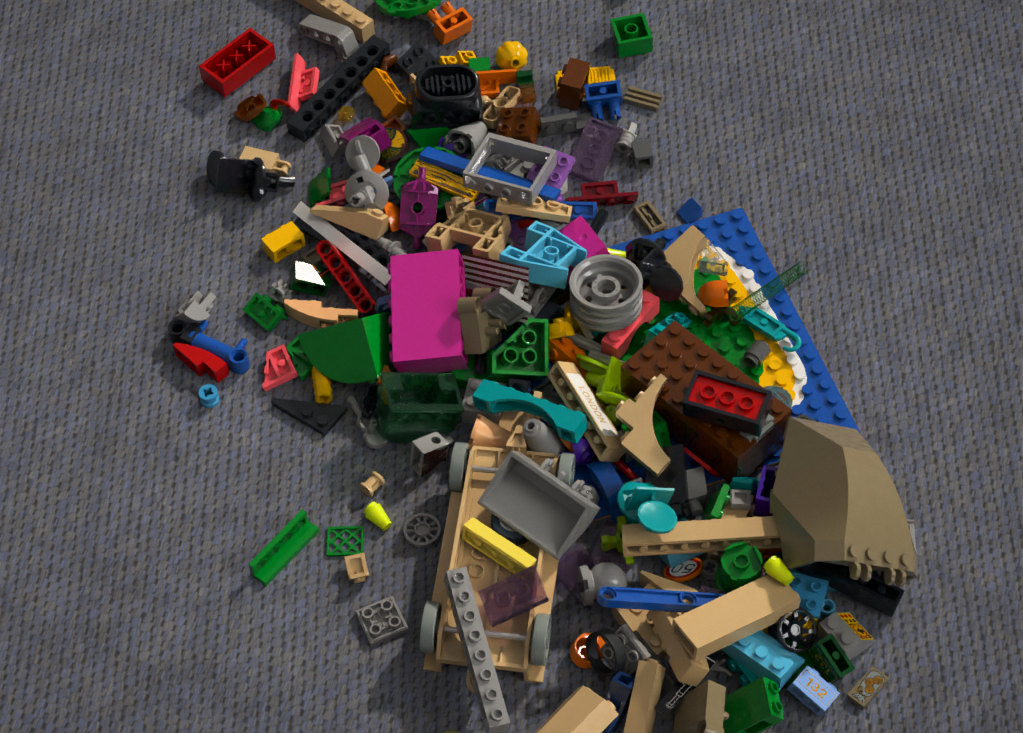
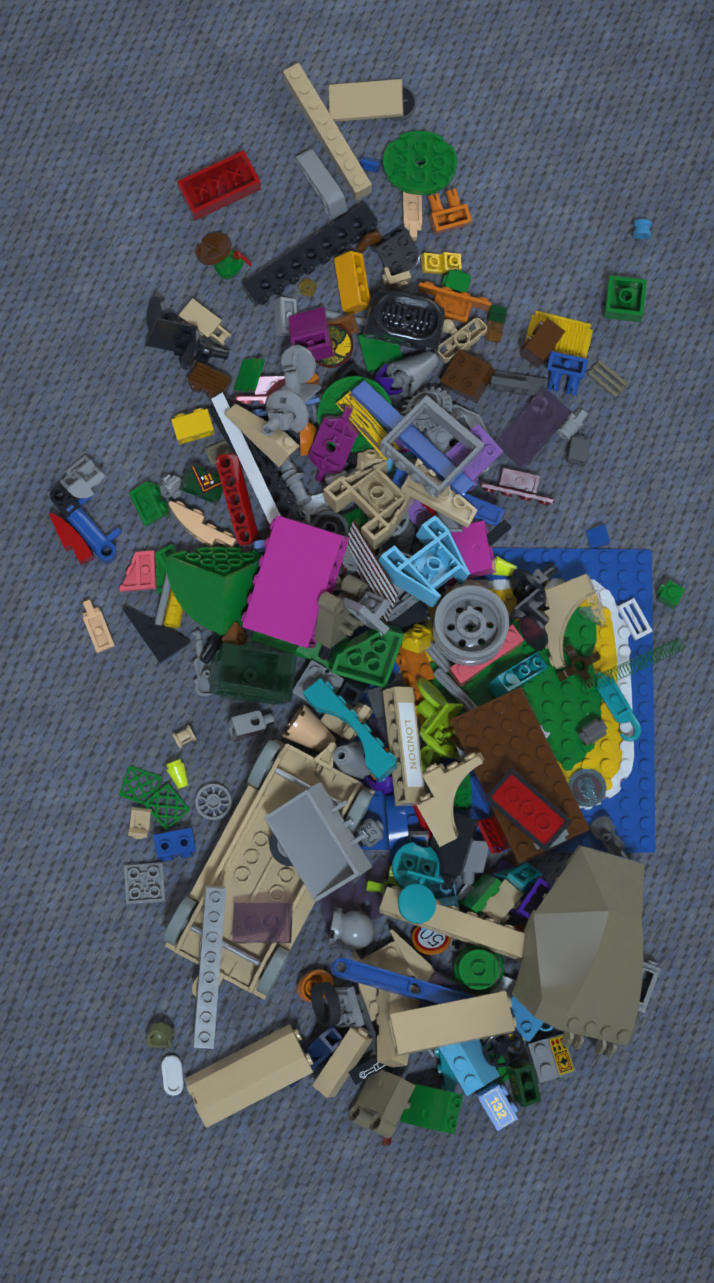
camera: 15 degrees right, 25 degrees up
(212, 399) = (66, 584): dark azure wheel -> none
(253, 423) = (97, 628): none -> light nougat hinge
(283, 203) = (208, 381): none -> reddish brown brick
(283, 548) = (81, 776): green fence -> none
(302, 83) = (275, 236): coral bracket -> none
(308, 379) = (163, 602): none -> light grey bar
(367, 10) = (370, 164): none -> blue slope
(383, 538) = (176, 818): none -> green window
(398, 574) = (175, 844): none -> blue brick
(416, 31) = (412, 213): none -> light nougat hinge
(496, 546) = (267, 866): light yellow slope -> none
(511, 56) = (494, 282): yellow plant -> none
(662, 225) = (547, 515): dark tan tile -> none
(714, 293) = (576, 657): orange brick -> none
(740, 499) = (507, 895): light grey tile -> none
(750, 261) = (631, 614): none -> white tile
(775, 231) = (670, 594): none -> green brick
(777, 569) = (506, 997): neon yellow cone -> none
(867, 688) = (548, 1116): tile -> none

